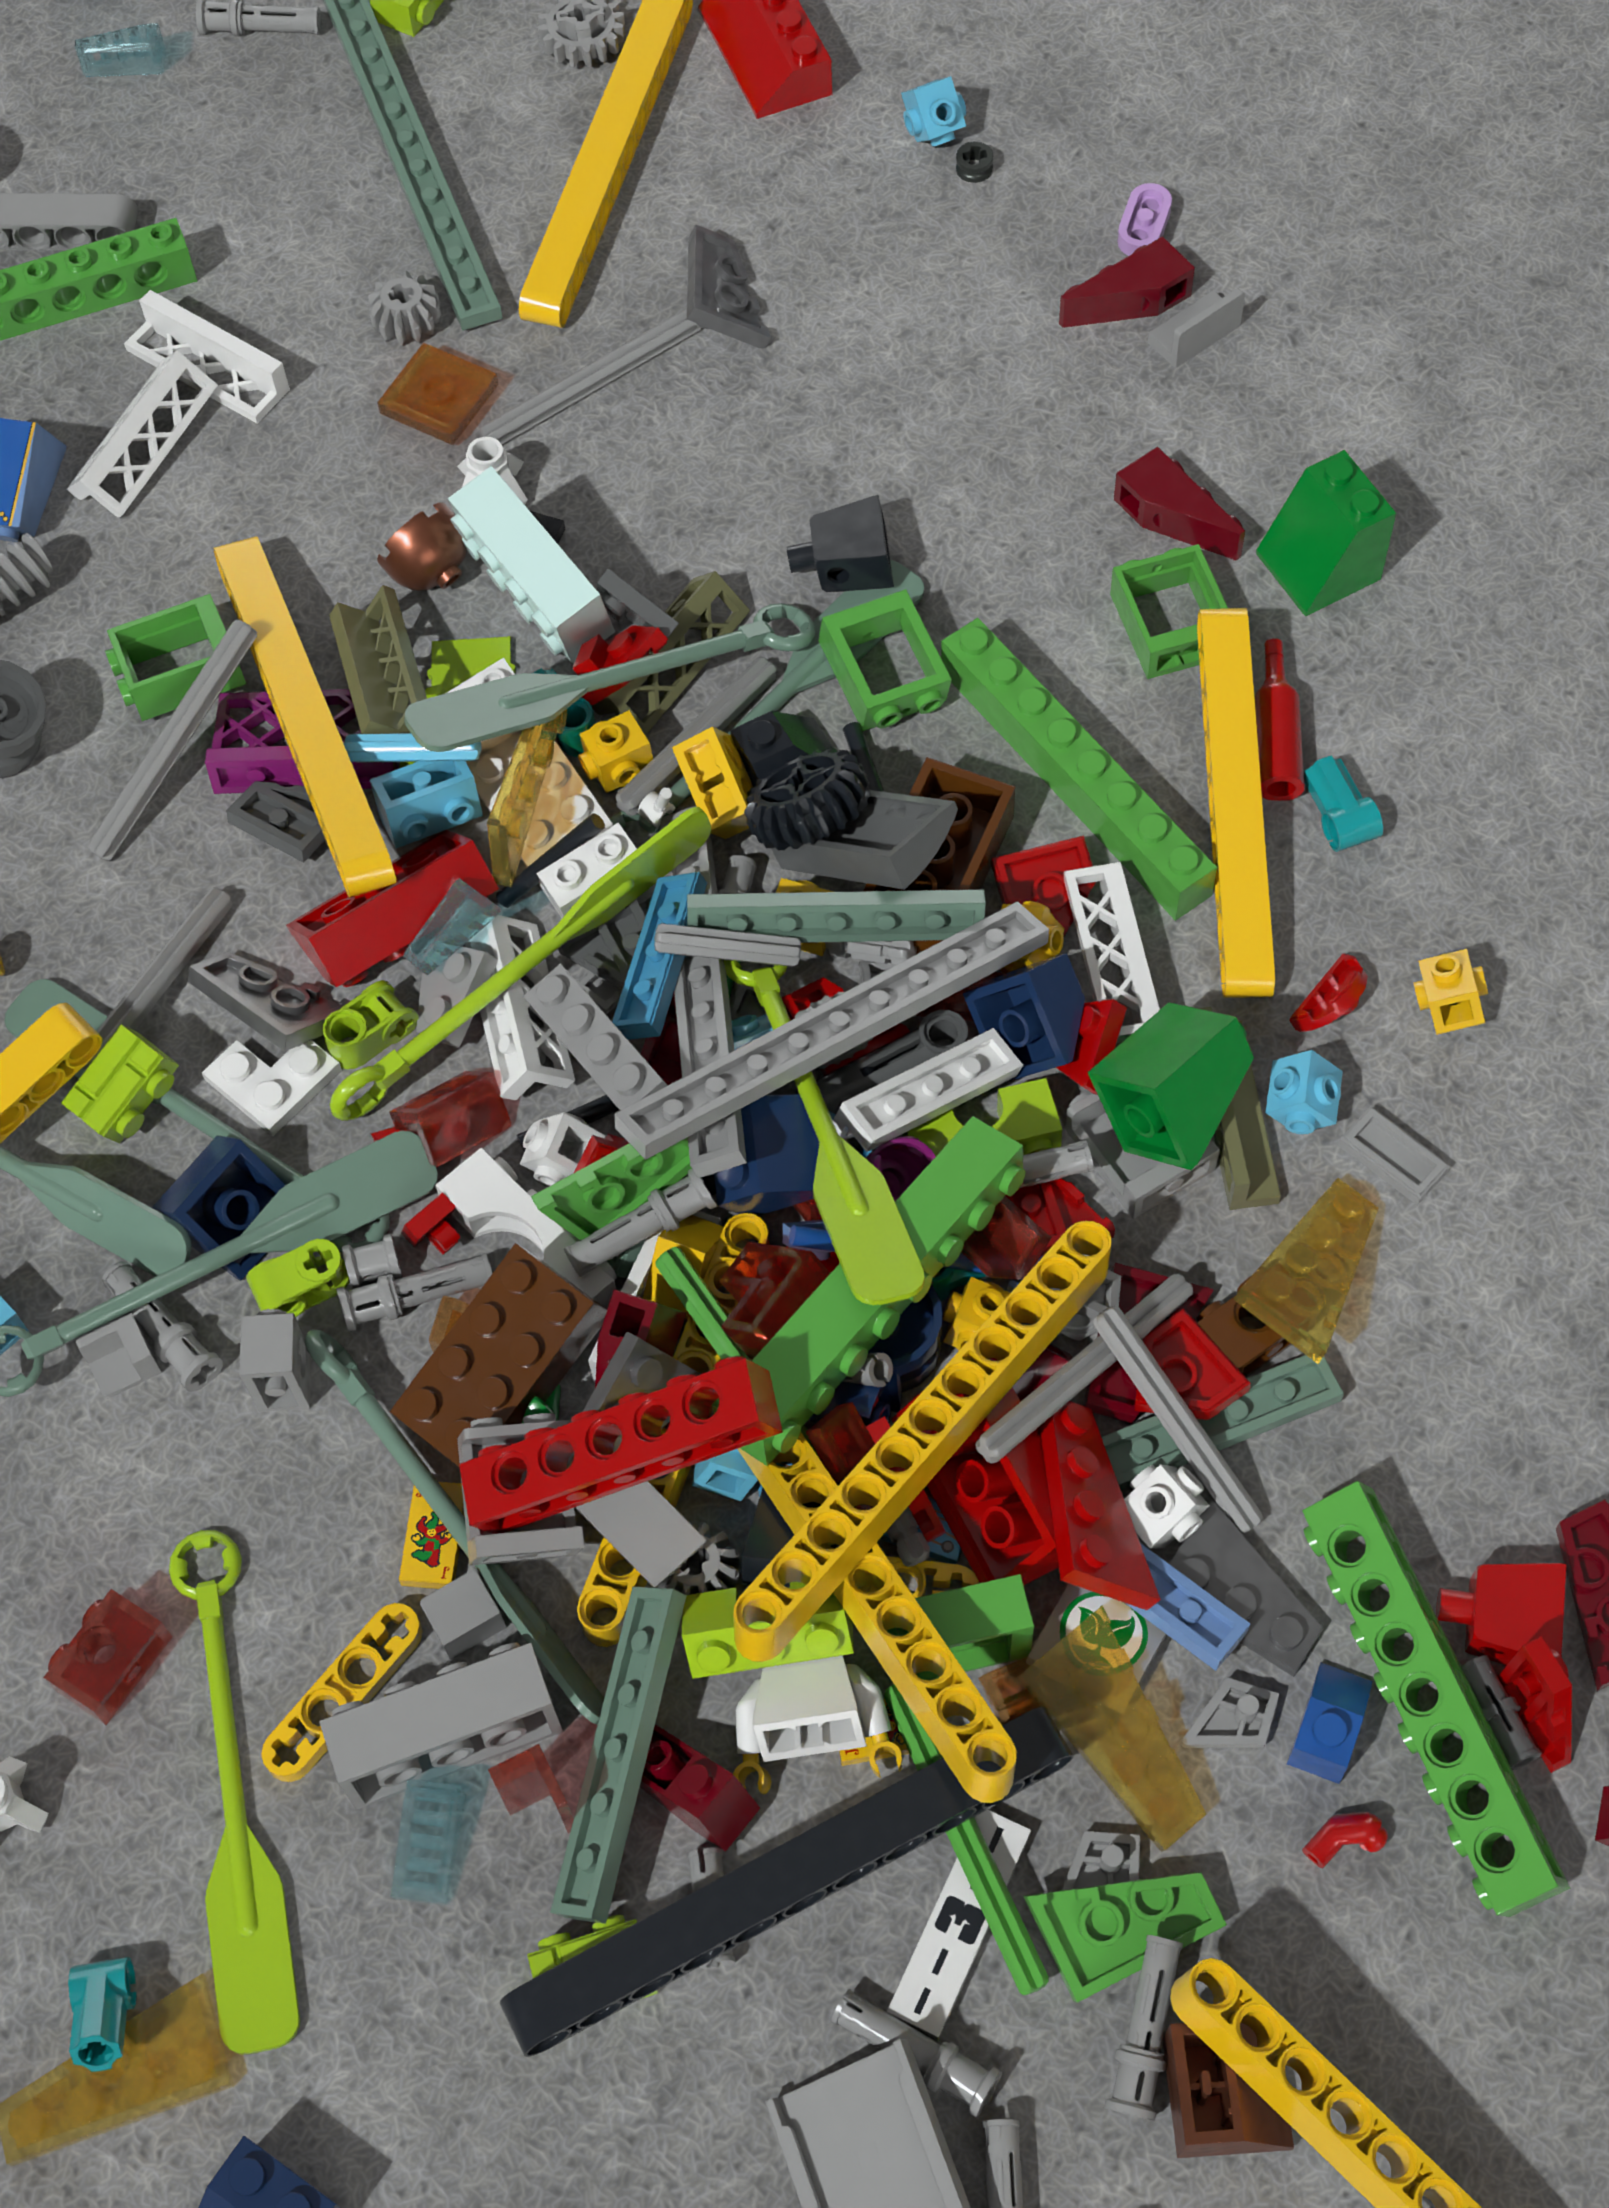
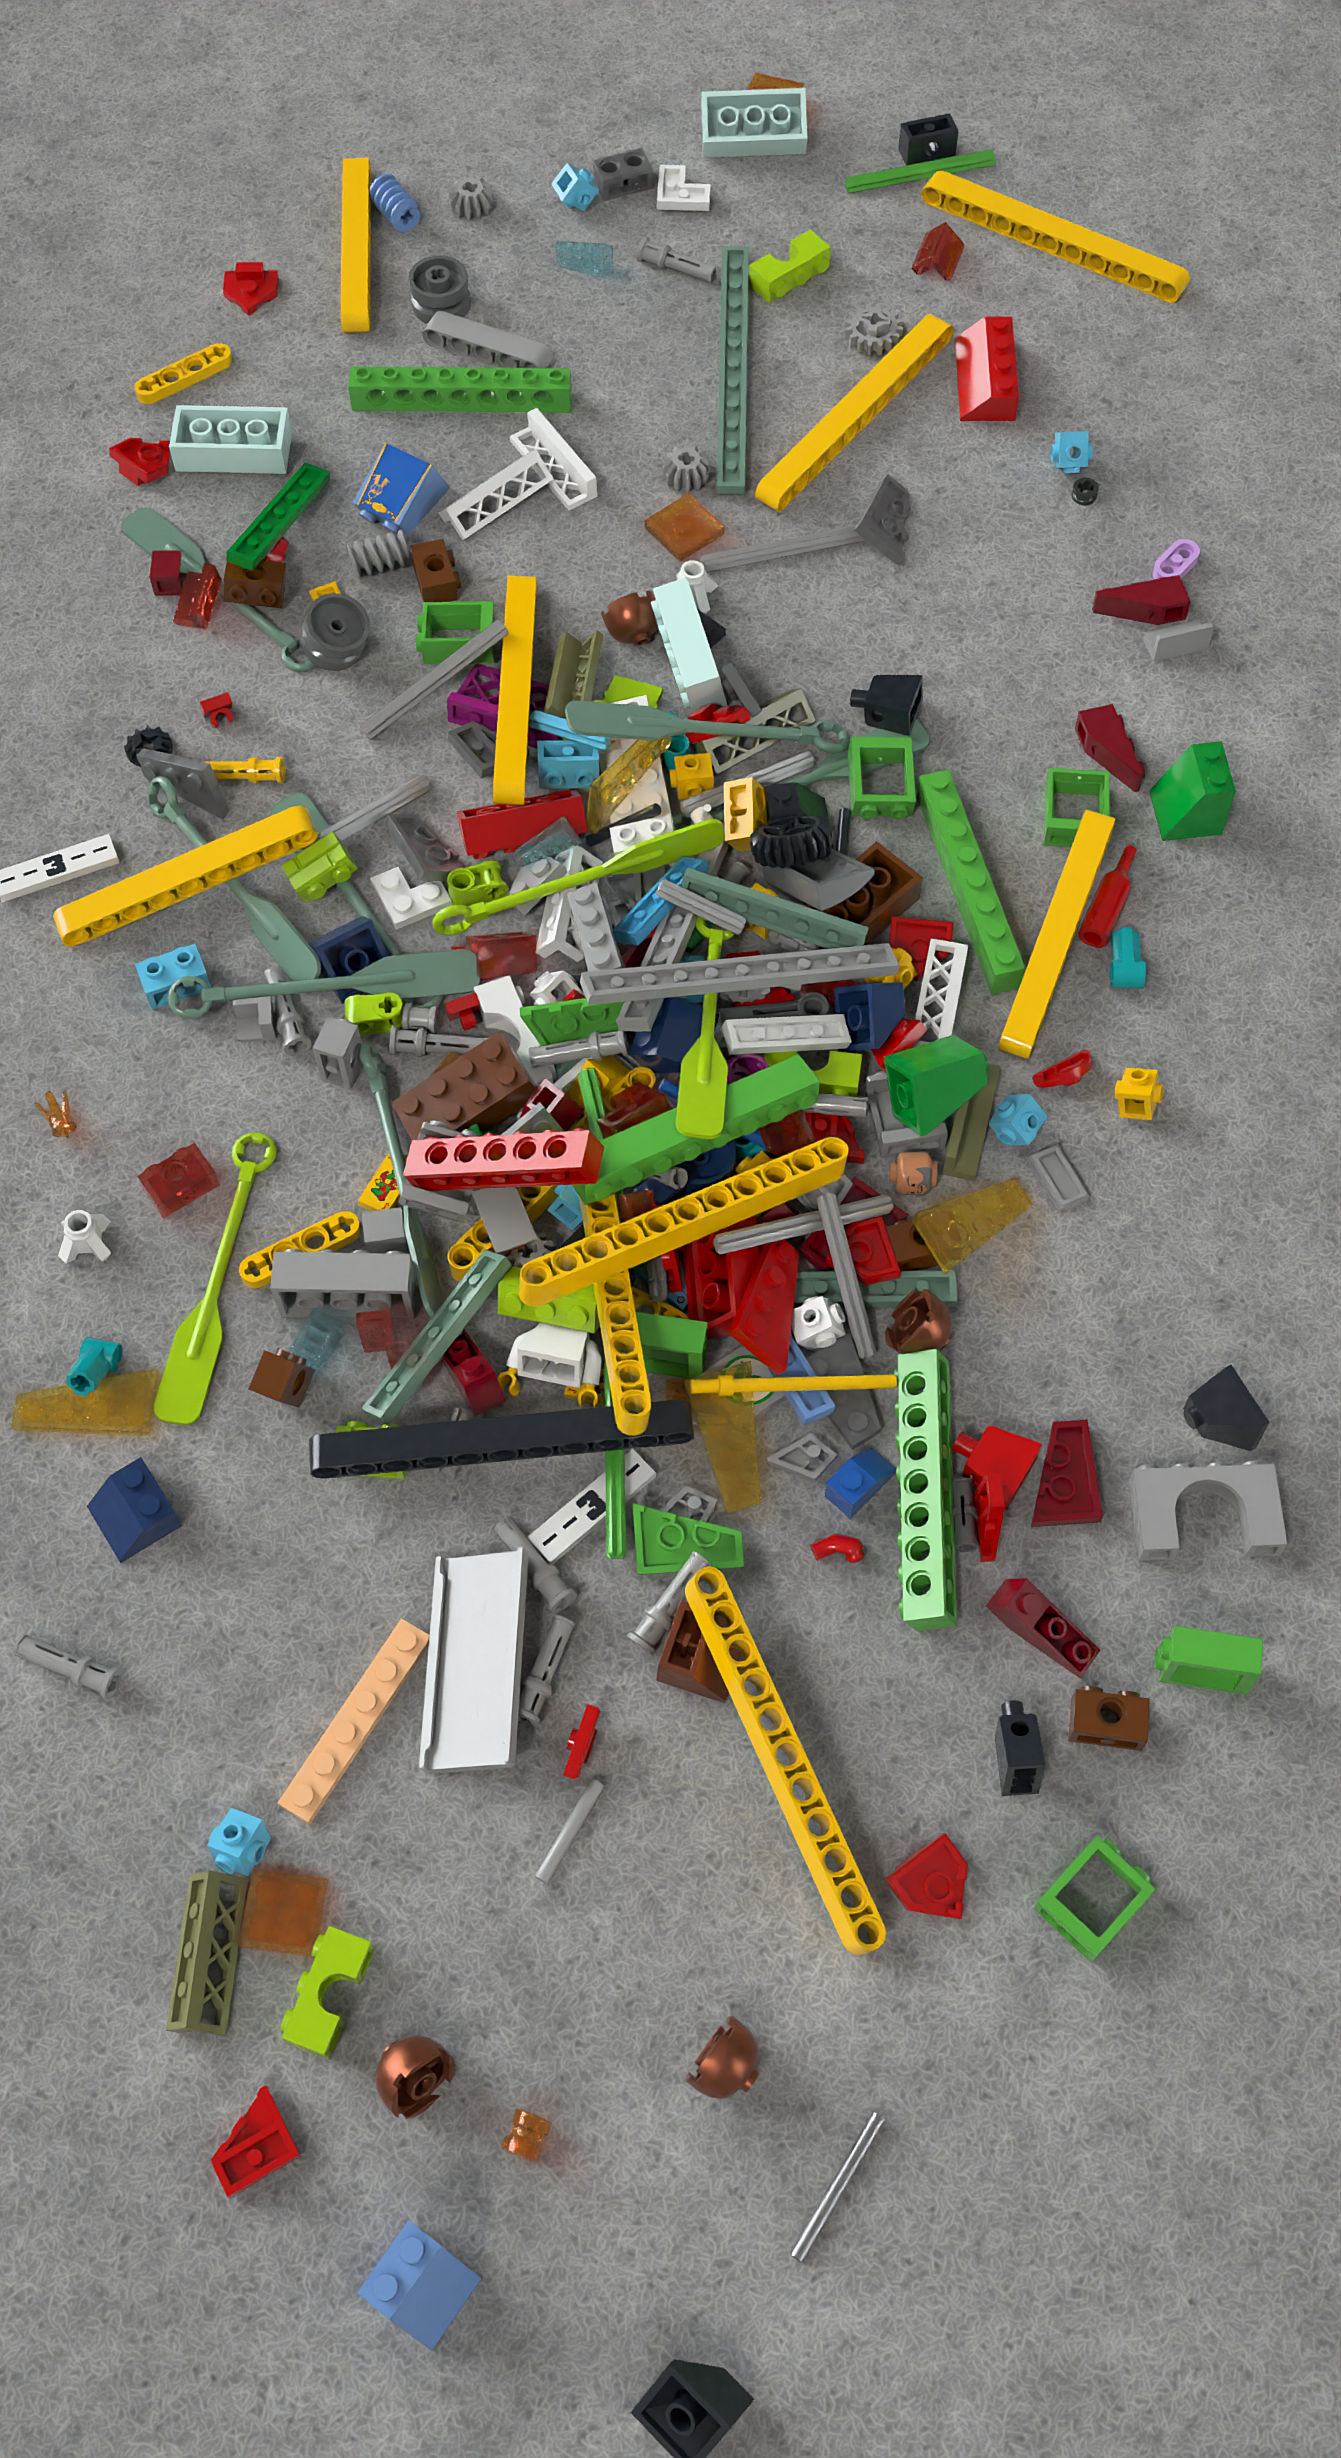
camera: 20 degrees right, 0 degrees up
(101, 579) = (434, 571): none -> reddish brown brick
(411, 1915) = (282, 1377): none -> reddish brown brick
(1089, 1658) = (727, 1386): none -> yellow bar
(1194, 1226) = (913, 1173): none -> nougat head
(1309, 1451) = (919, 1324): none -> copper cylinder

